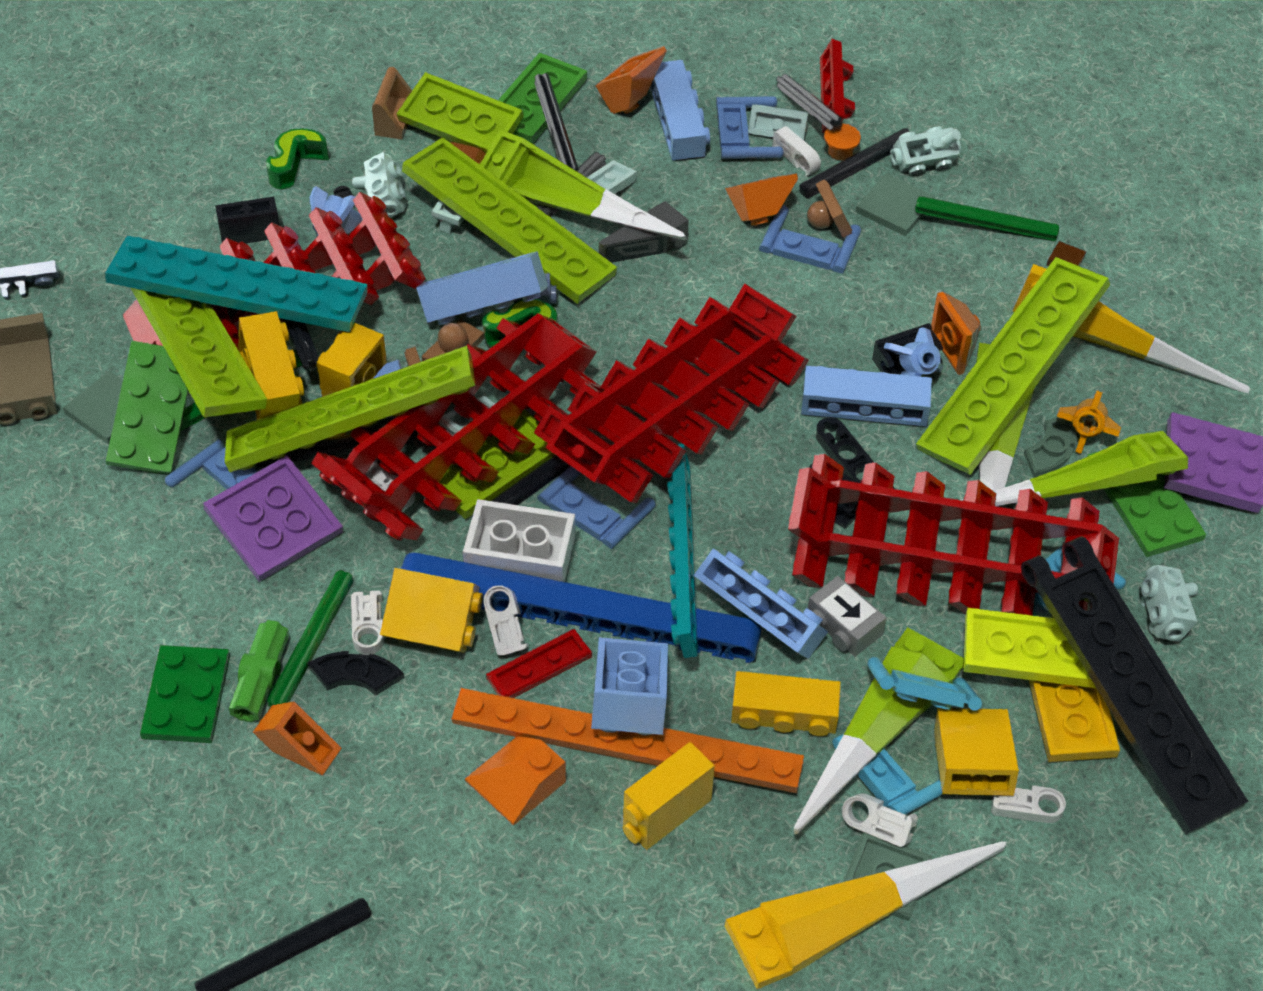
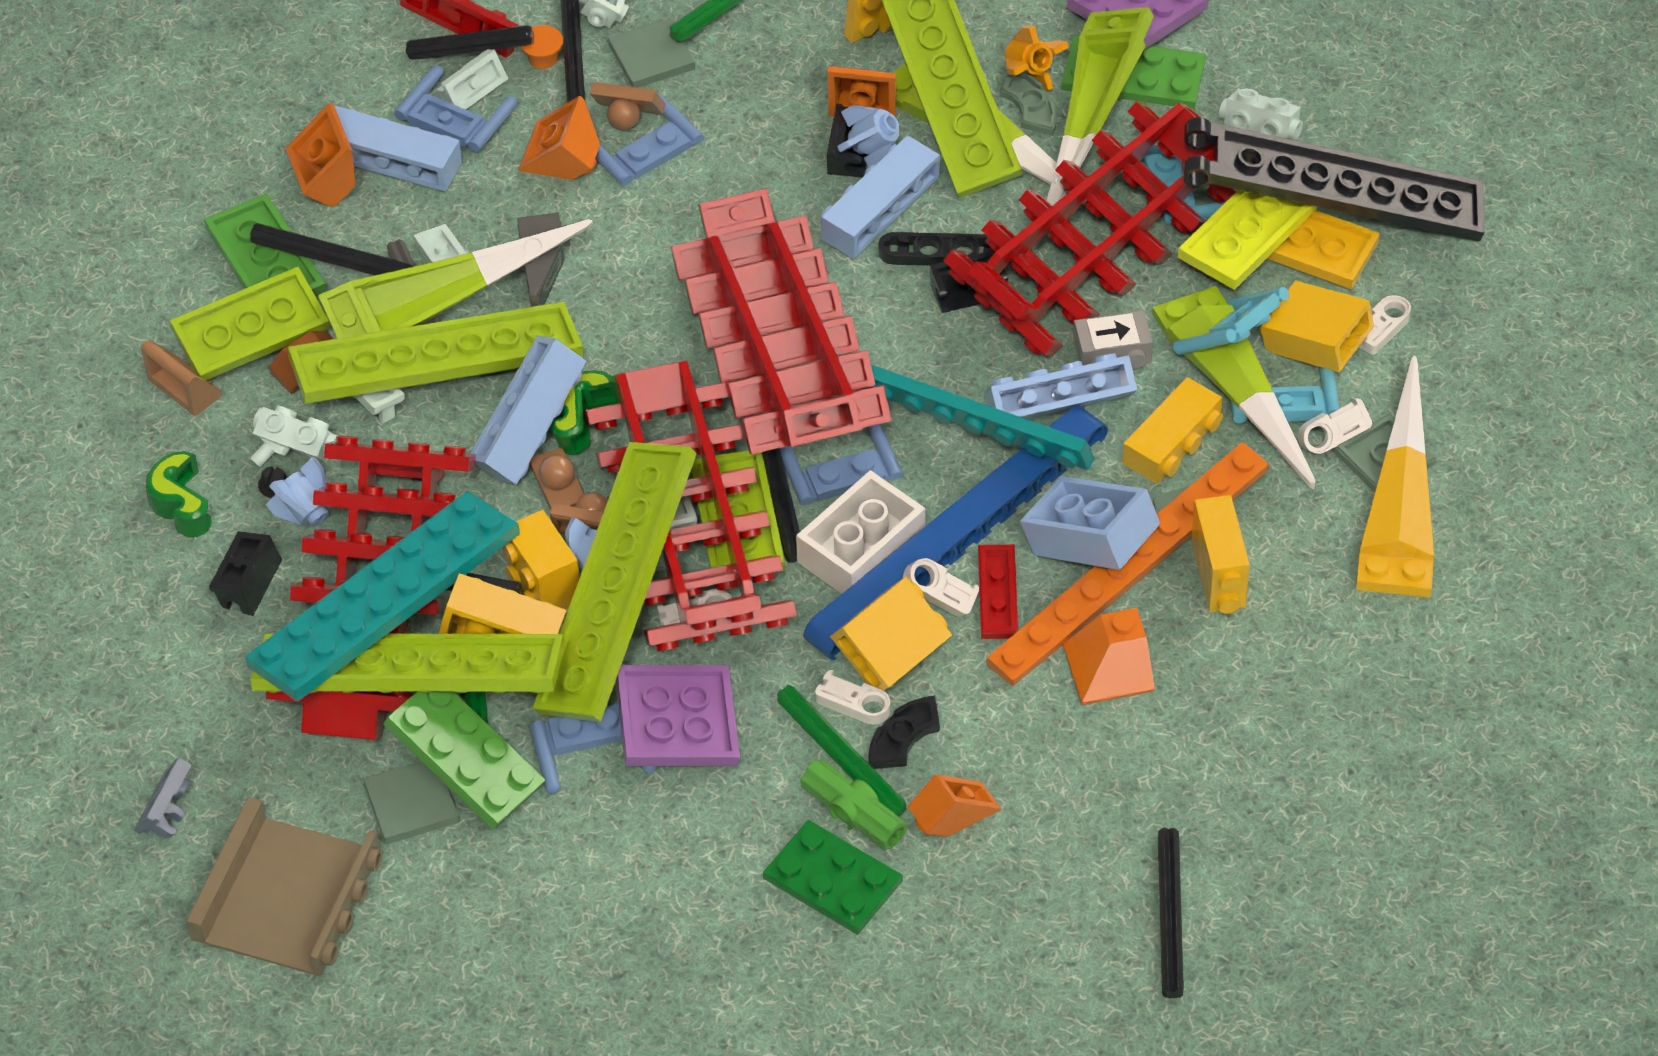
camera: 55 degrees left, 0 degrees up
(797, 150) = (522, 87): white piece -> none

